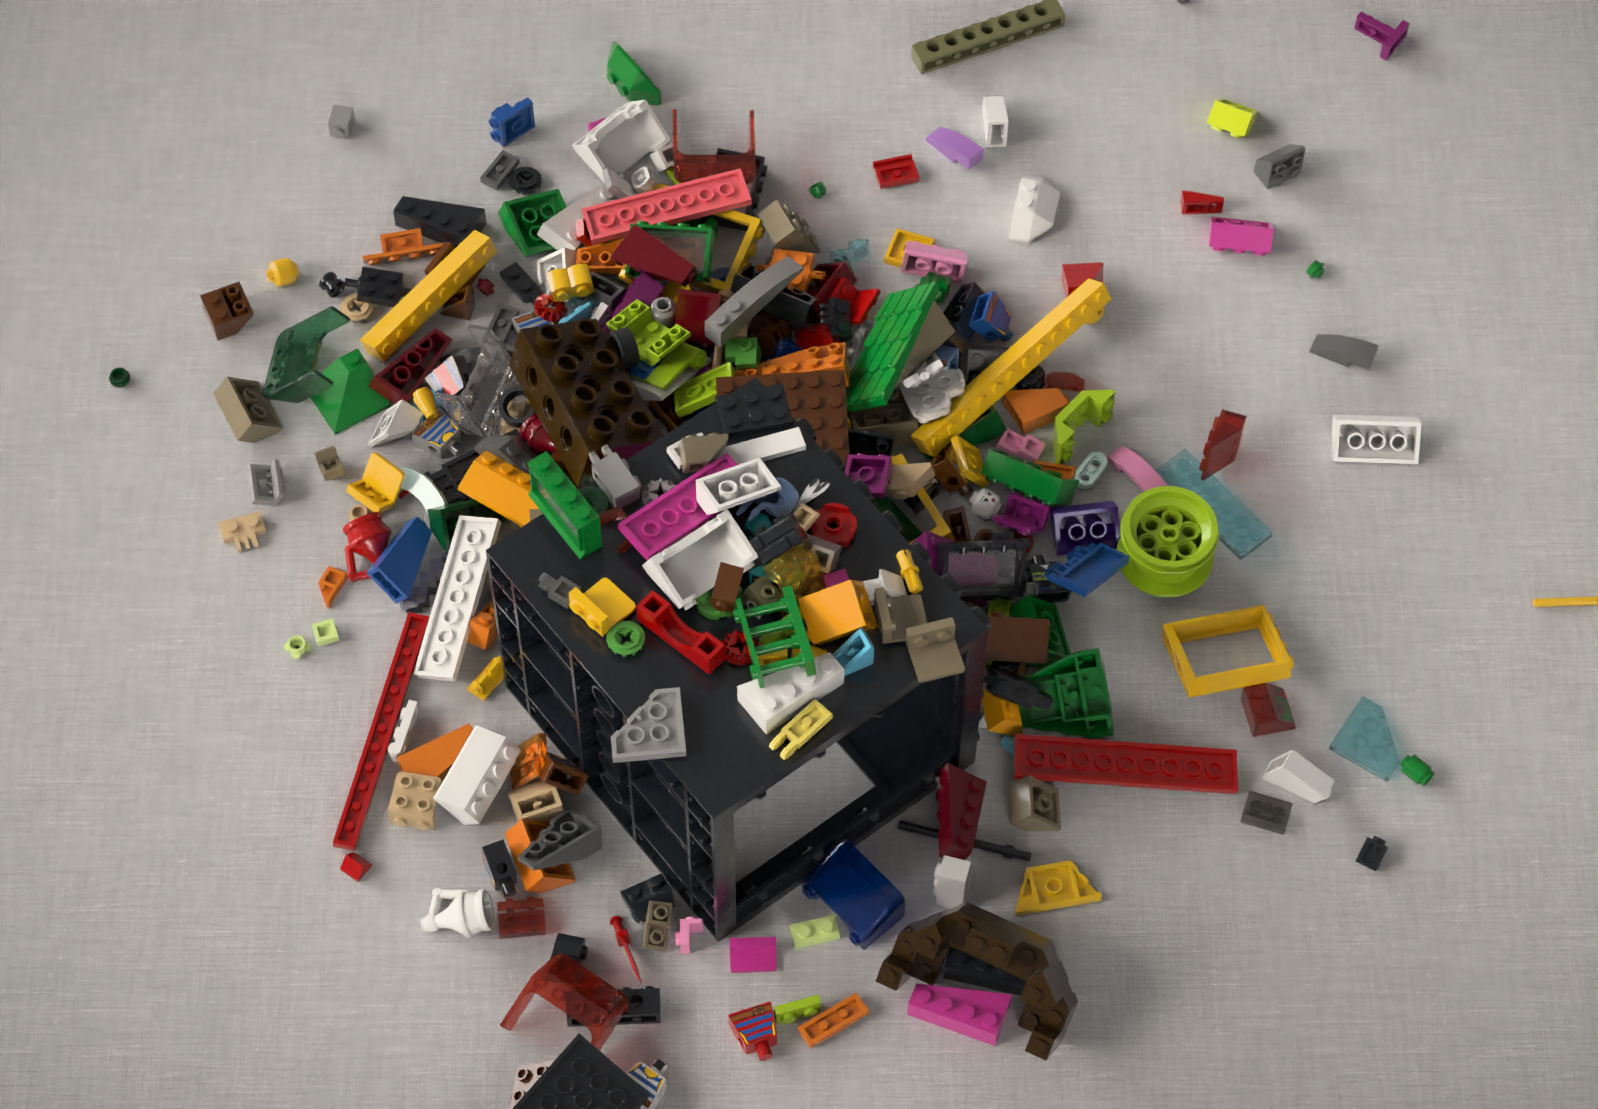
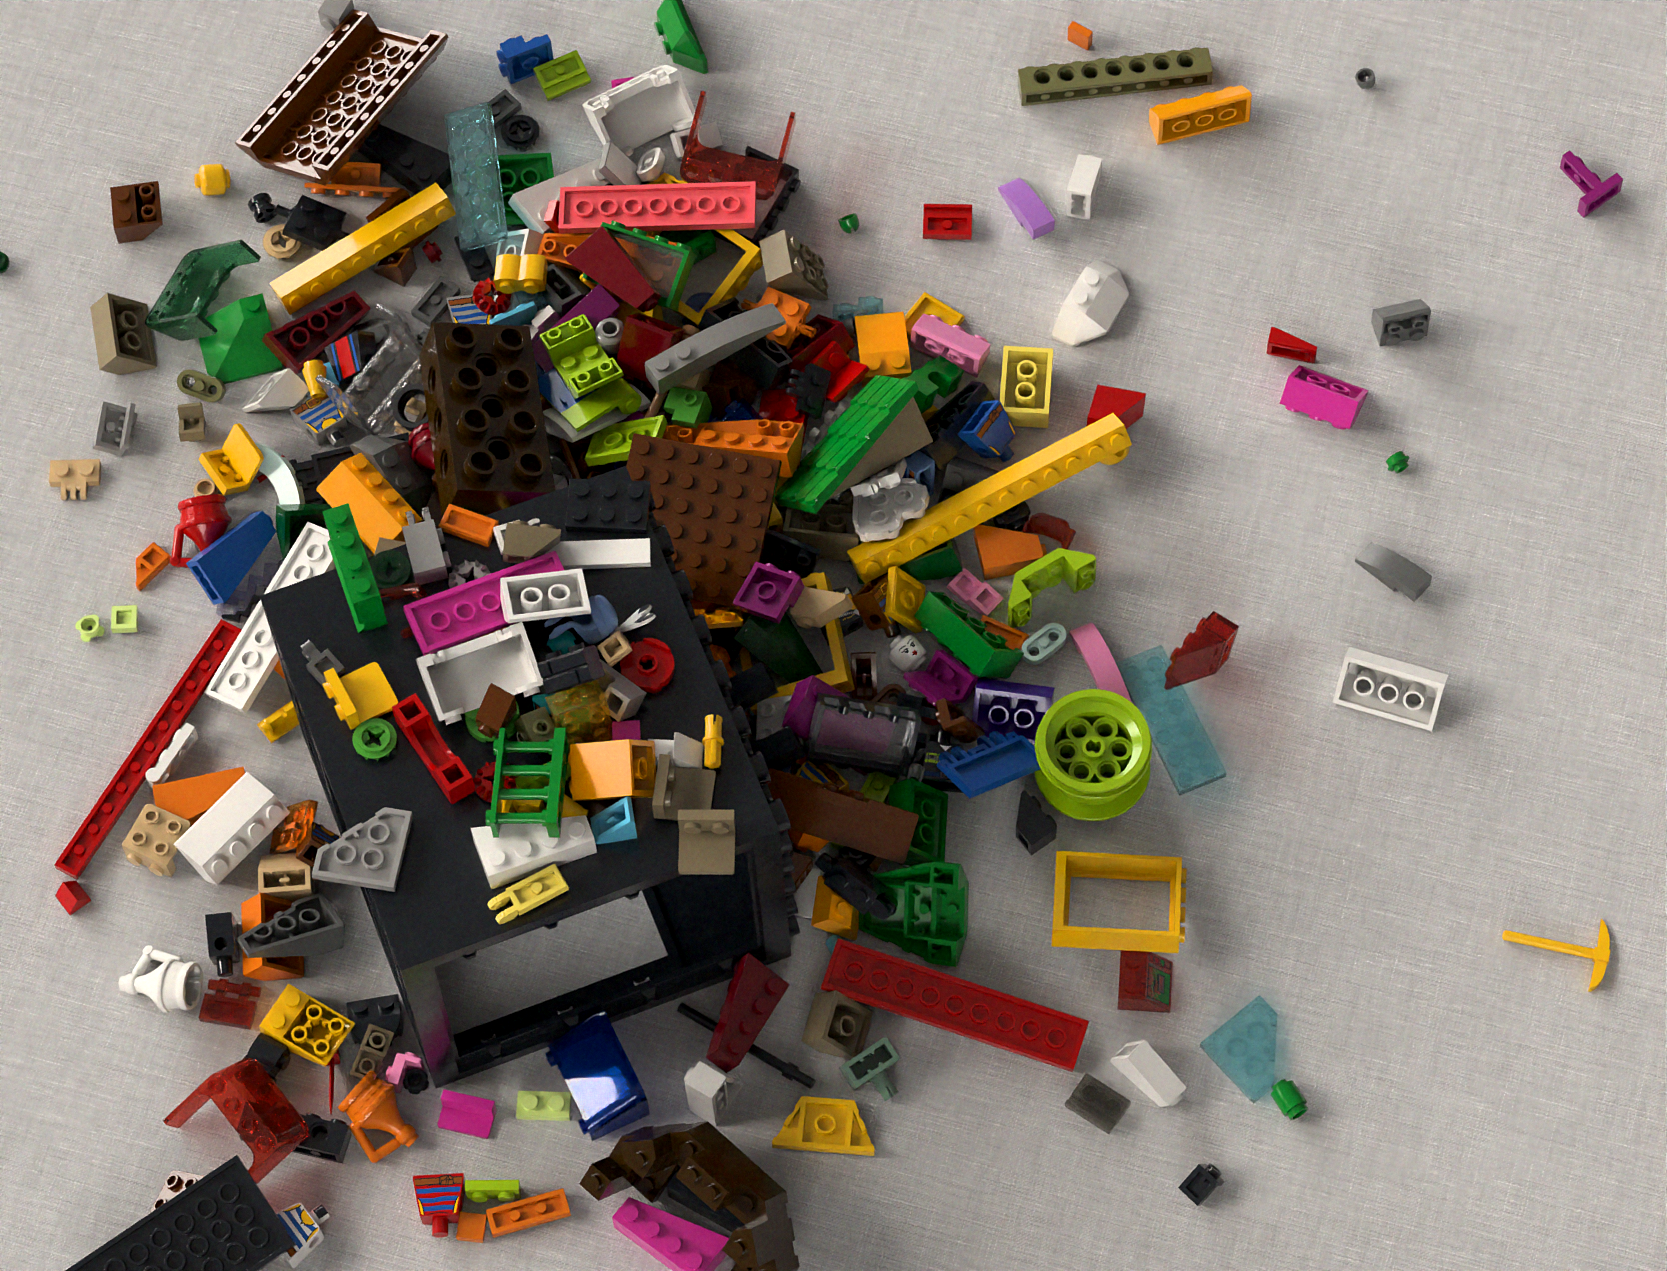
camera: 20 degrees right, 5 degrees up
(328, 433) = (202, 385): none -> olive plate
(369, 185) = (338, 98): none -> reddish brown slope
(506, 218) = (476, 176): none -> clear light blue plate
(544, 130) = (562, 75): none -> lime plate
(595, 917) = (306, 1026): none -> yellow slope
(625, 346) = (547, 370): black tyre -> none
(643, 452) = (468, 525): none -> orange tile
(675, 968) = (374, 1106): none -> orange piece
(701, 934) = (411, 1076): none -> black plate
(789, 1045) = (471, 1227): none -> orange tile
(879, 271) = (883, 345): none -> light orange slope
(949, 11) = (1080, 35): none -> orange tile
(1006, 274) = (1027, 385): none -> light yellow brick
(1053, 549) = (956, 723): none -> reddish brown bracket
(1066, 47) = (1200, 114): none -> light orange slope
(1075, 830) = (871, 1067): none -> sand green brick
(1134, 610) = (1032, 825): none -> black slope
(1232, 117) = (1368, 247): neon yellow slope -> none

